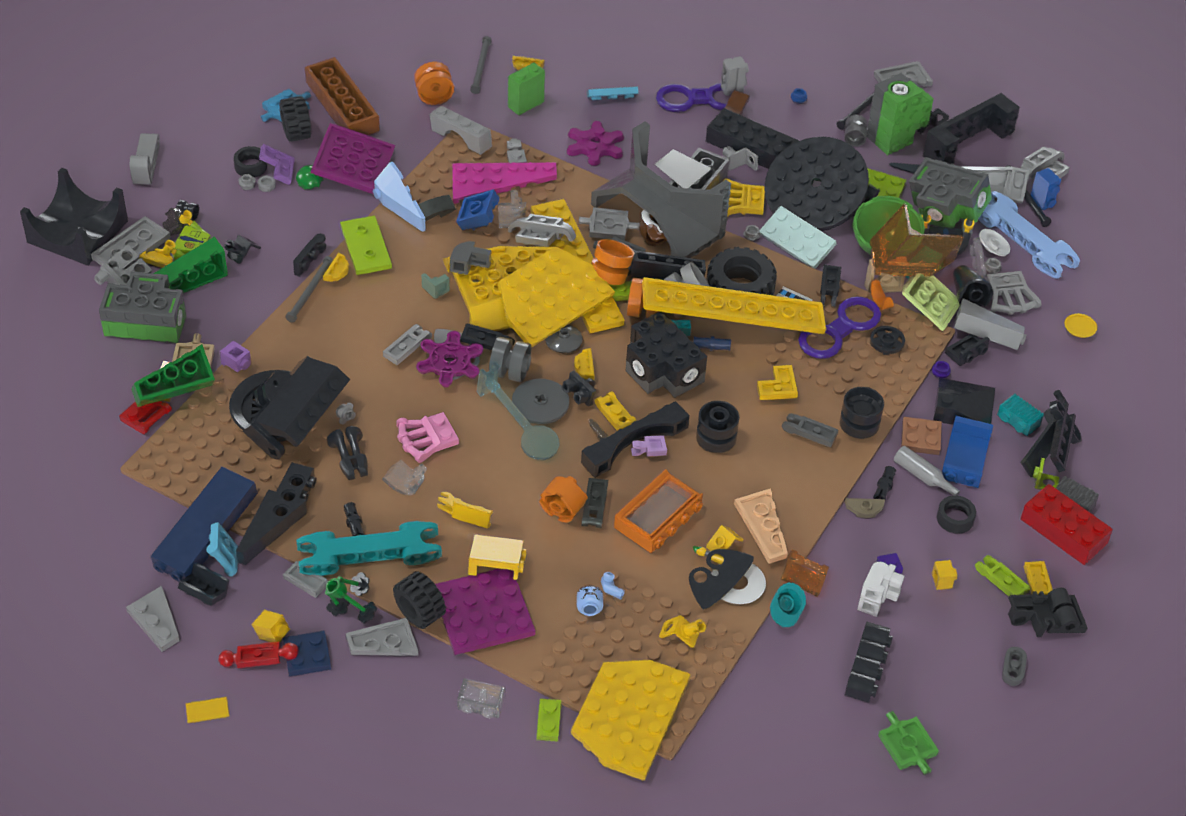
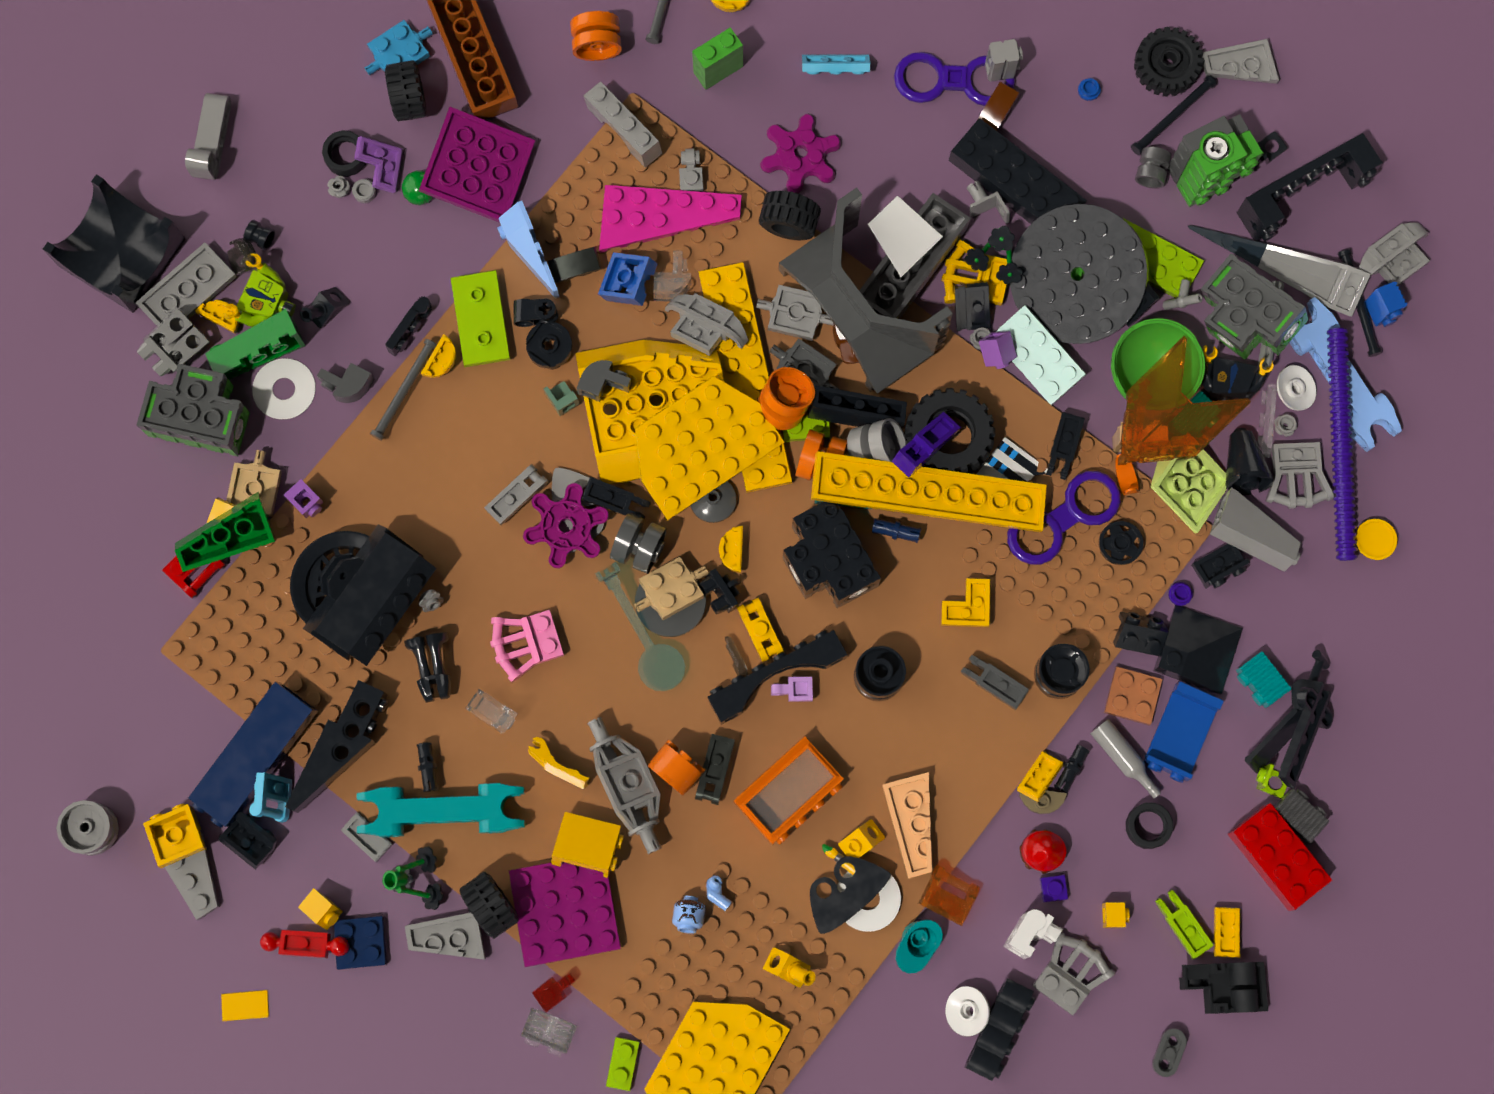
camera: 10 degrees right, 30 degrees up
(62, 586) = (76, 836): none -> light grey wheel
(139, 584) = (174, 835): none -> yellow plate
(227, 305) = (291, 407): none -> white sticker
(263, 293) = (350, 387): none -> dark grey brick
(406, 236) = (530, 312): none -> black piece
(425, 262) = (549, 358): none -> black plate
(481, 670) = (552, 992): none -> clear red plate
(527, 513) = (627, 784): none -> light grey plate
(540, 387) = (671, 588): none -> tan plate
(595, 163) = (789, 215): none -> black tyre
(724, 274) = (925, 444): none -> dark purple slope
(741, 211) = (972, 306): none -> black plate
(756, 164) = (1001, 240): none -> black plant
(766, 233) = (997, 349): none -> medium lavender brick
(832, 647) = (959, 1014): none -> white dish
(852, 77) = (1173, 46): none -> black wheel
(860, 488) = (1040, 776): none -> yellow plate
(875, 537) = (1043, 851): none -> red hair
(901, 194) = (1183, 299): none -> light grey piece
(917, 393) = (1141, 633): none -> black bracket
(918, 632) = (1063, 987): none -> light grey plate
(1038, 269) = (1342, 447): none -> dark purple piece

